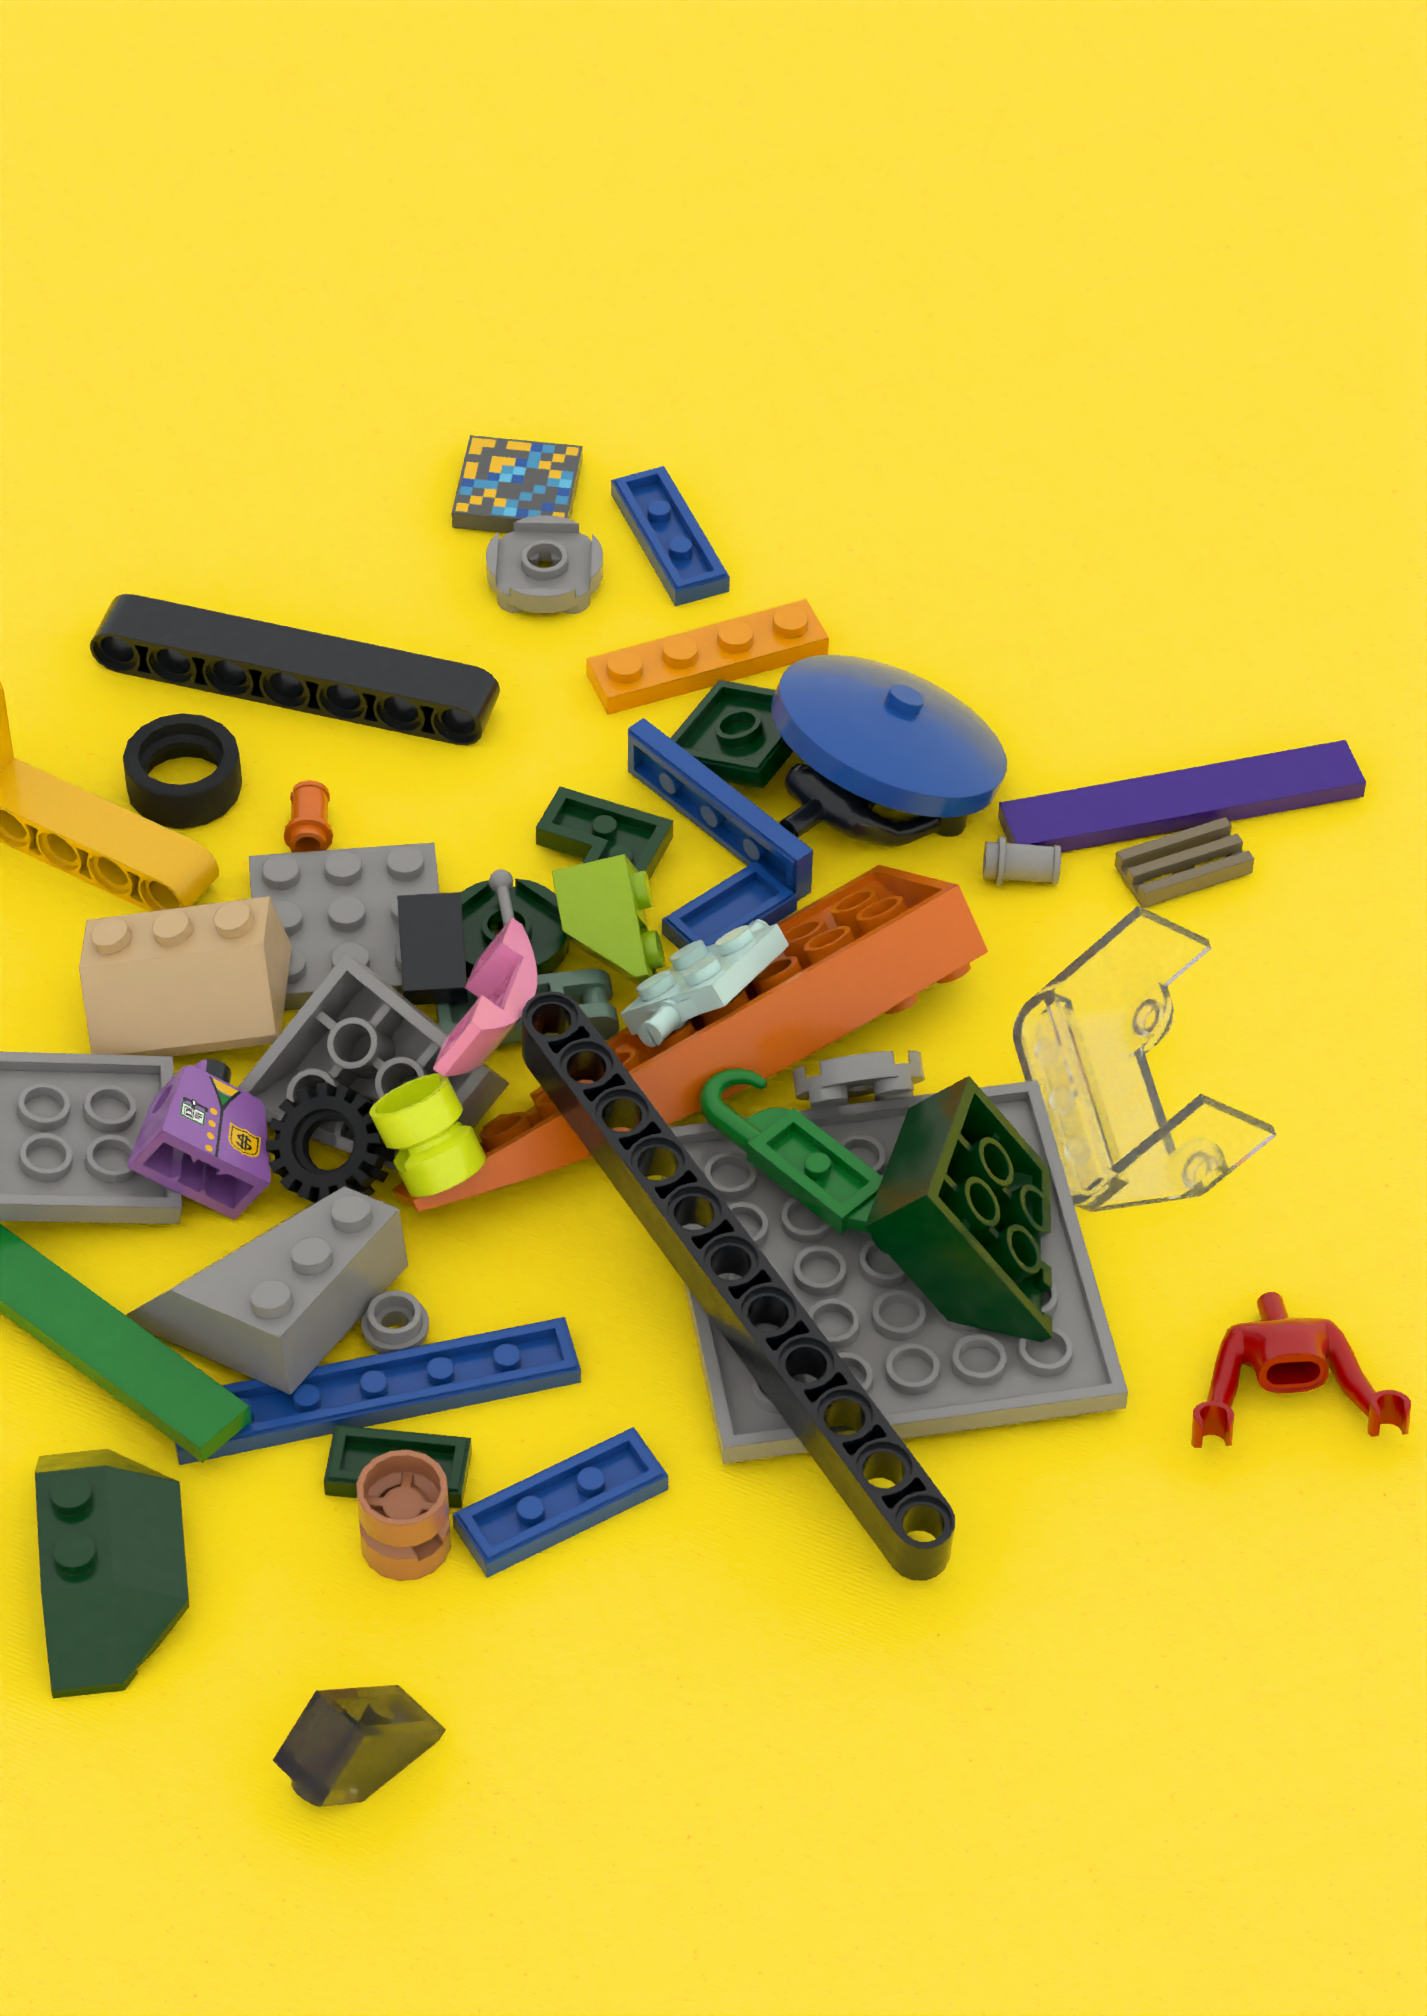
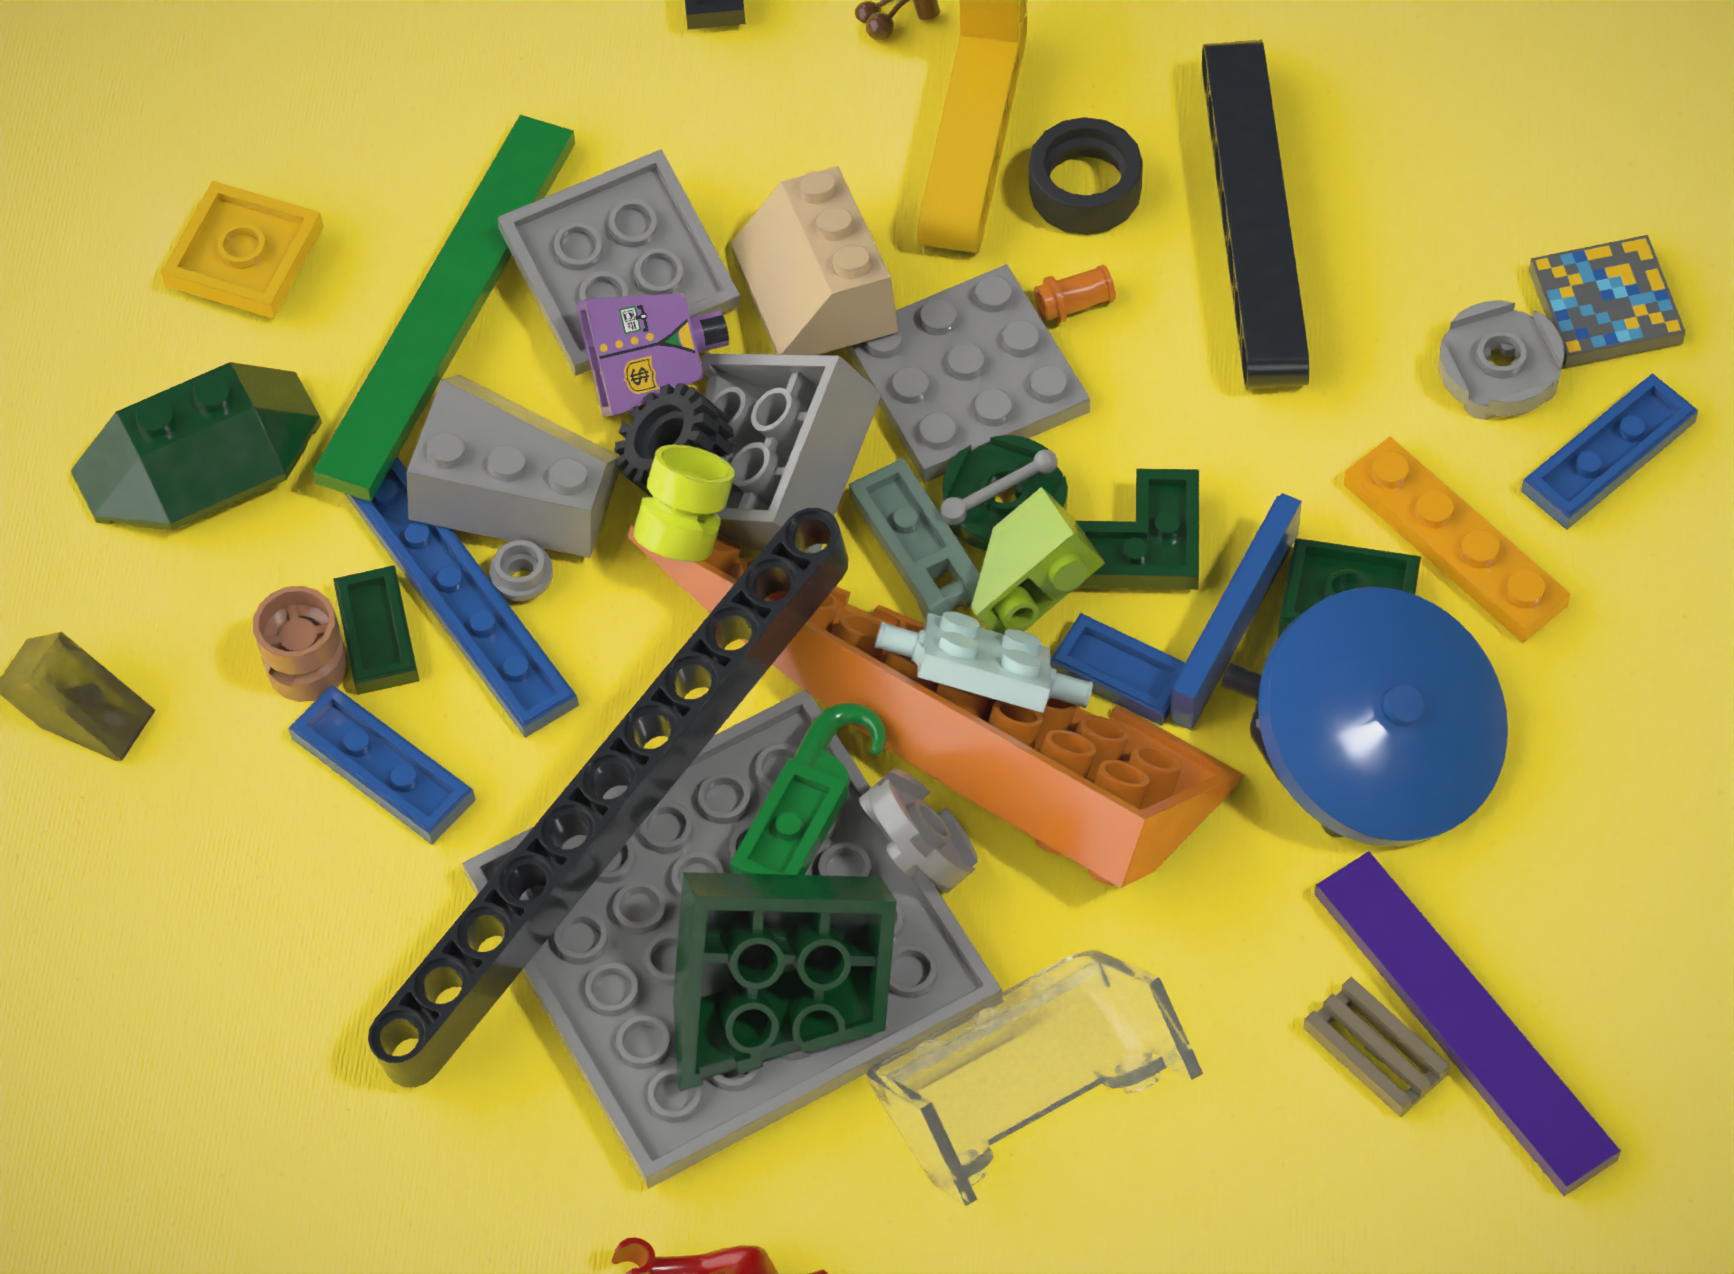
camera: 75 degrees right, 10 degrees up
(432, 948) = (936, 437): black tile -> none
(504, 983) = (776, 490): bright pink slope -> none
(1021, 862) = (1292, 880): light grey pin -> none

